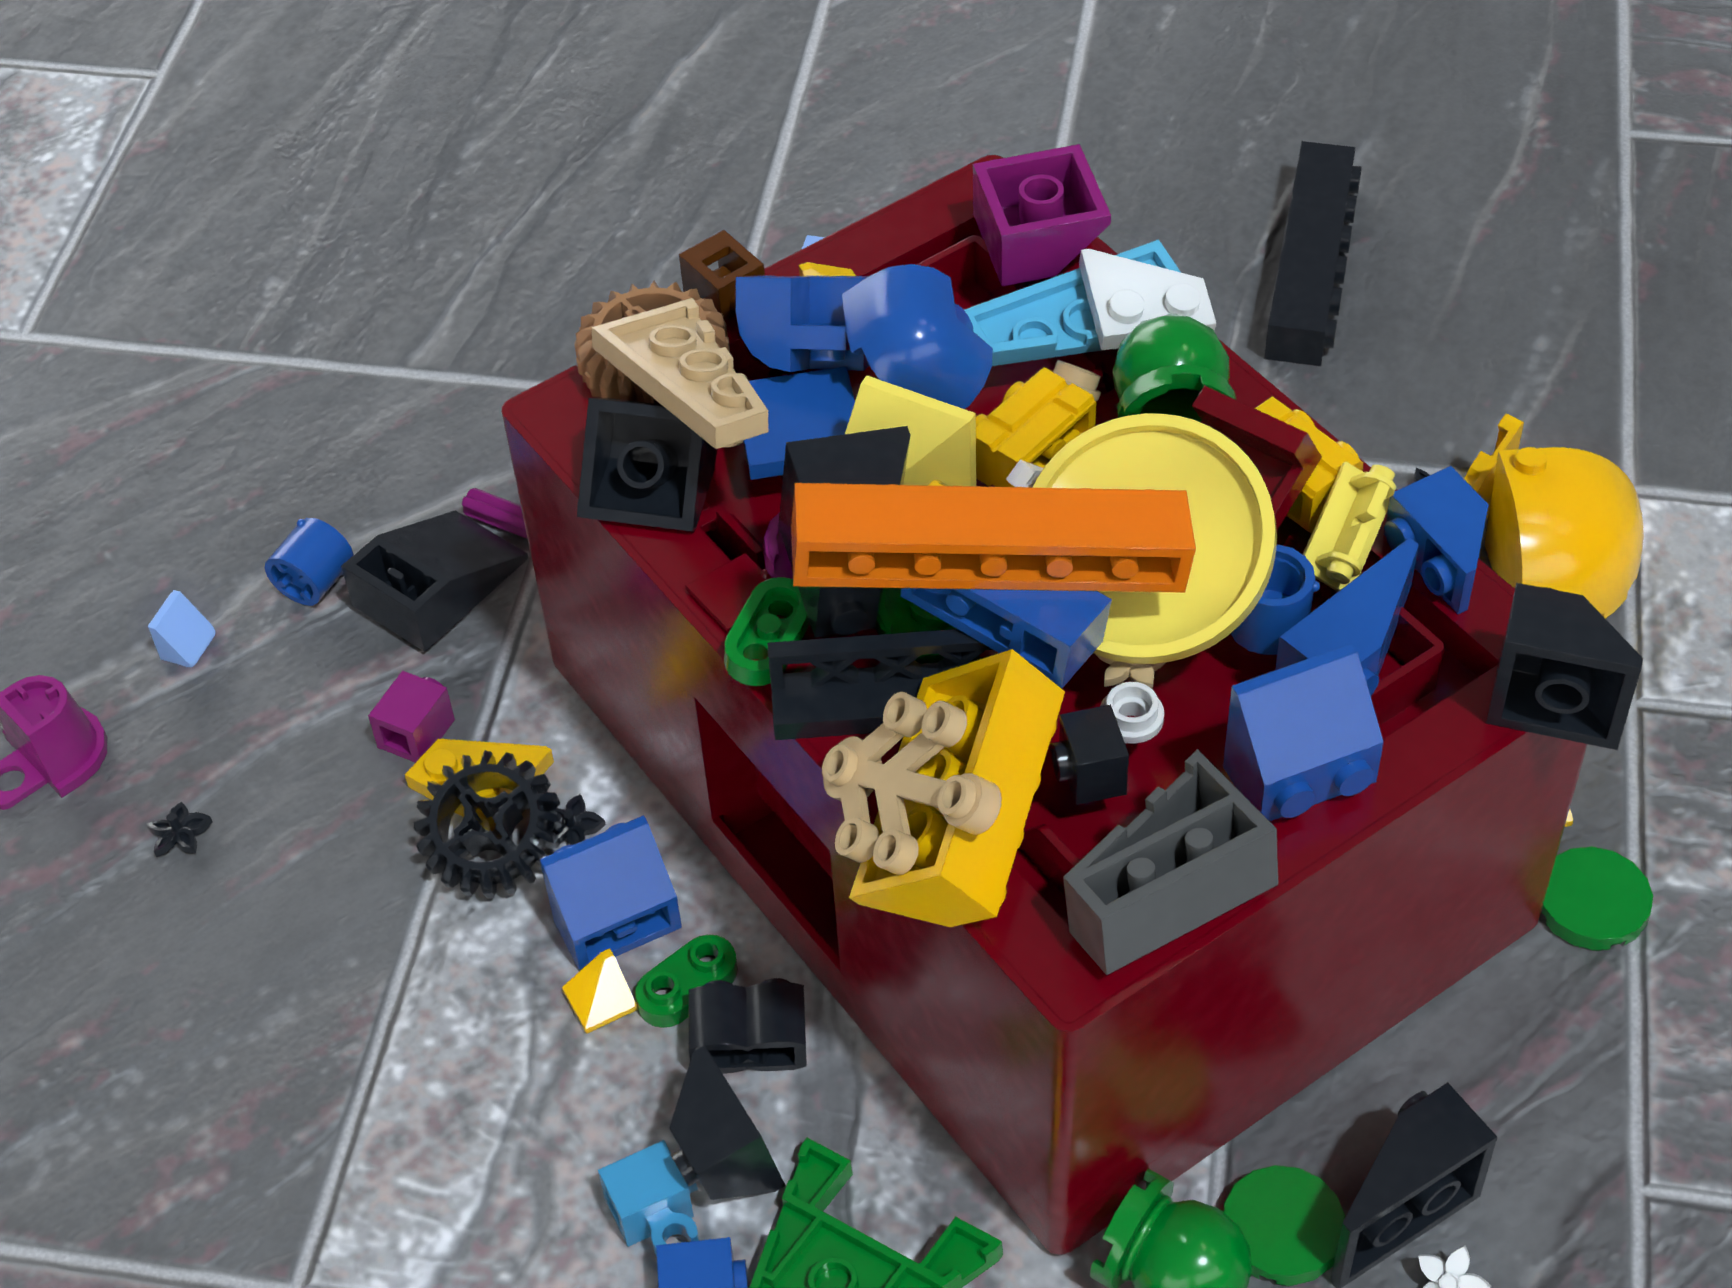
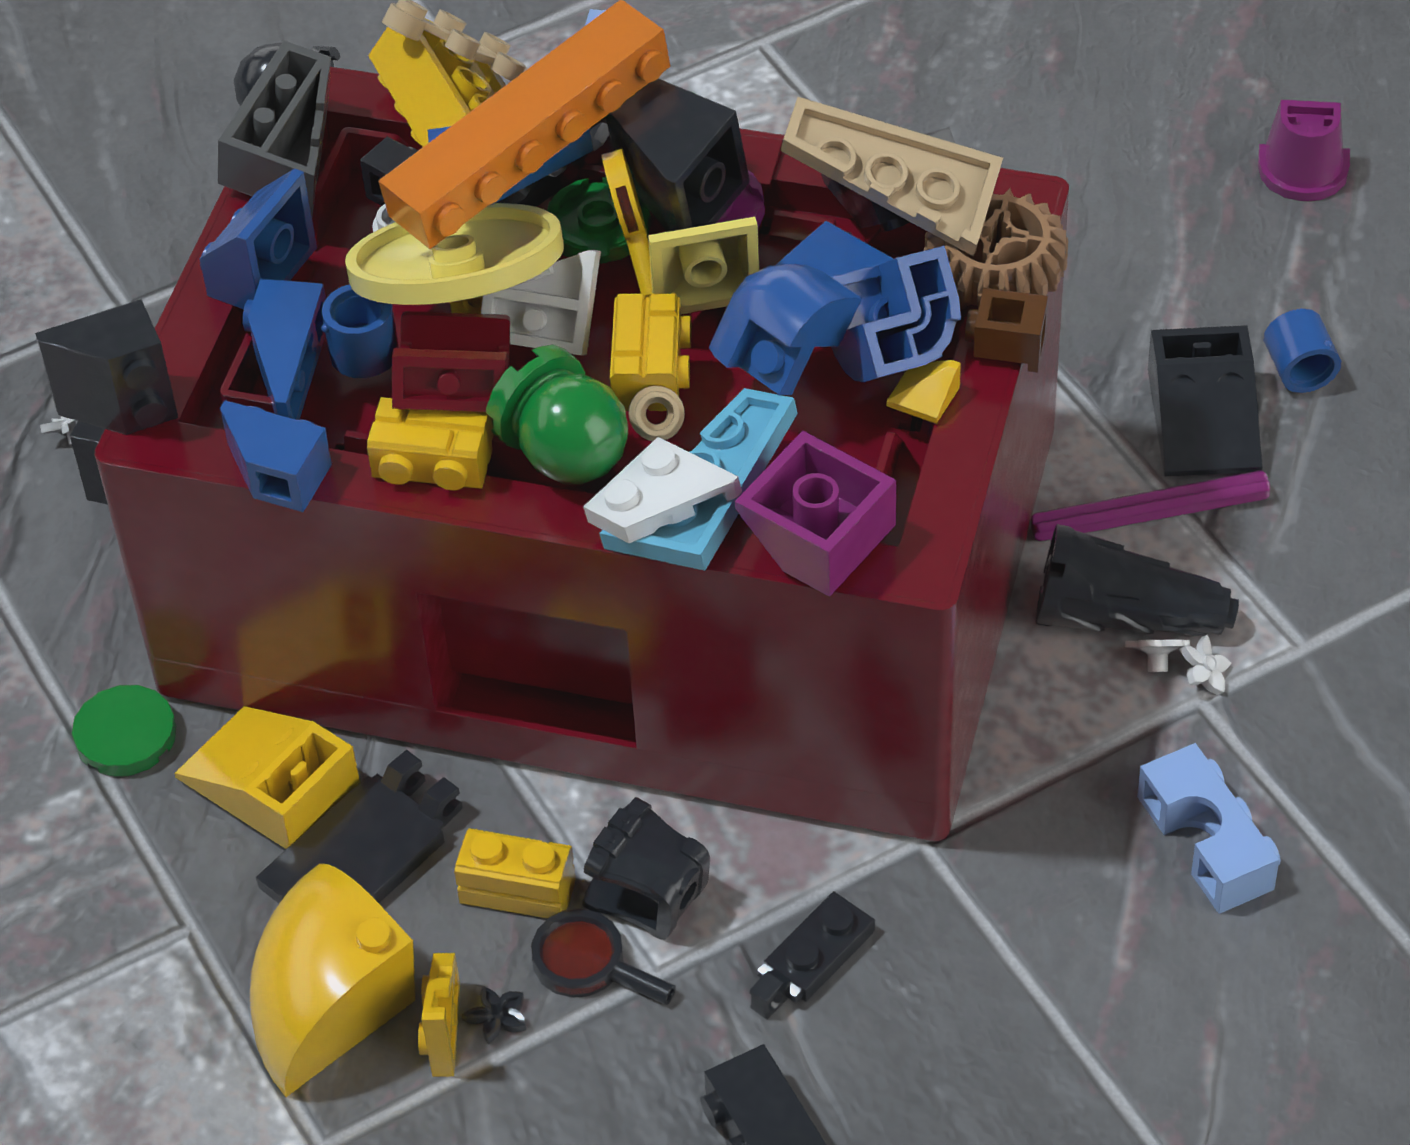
camera: 140 degrees right, 0 degrees up
(179, 828) = (1152, 174): black plant -> none
(180, 631) = (1327, 265): light blue slope -> none
(411, 716) = (1088, 312): magenta brick -> none
(1349, 524) = (343, 402): light yellow hinge -> none

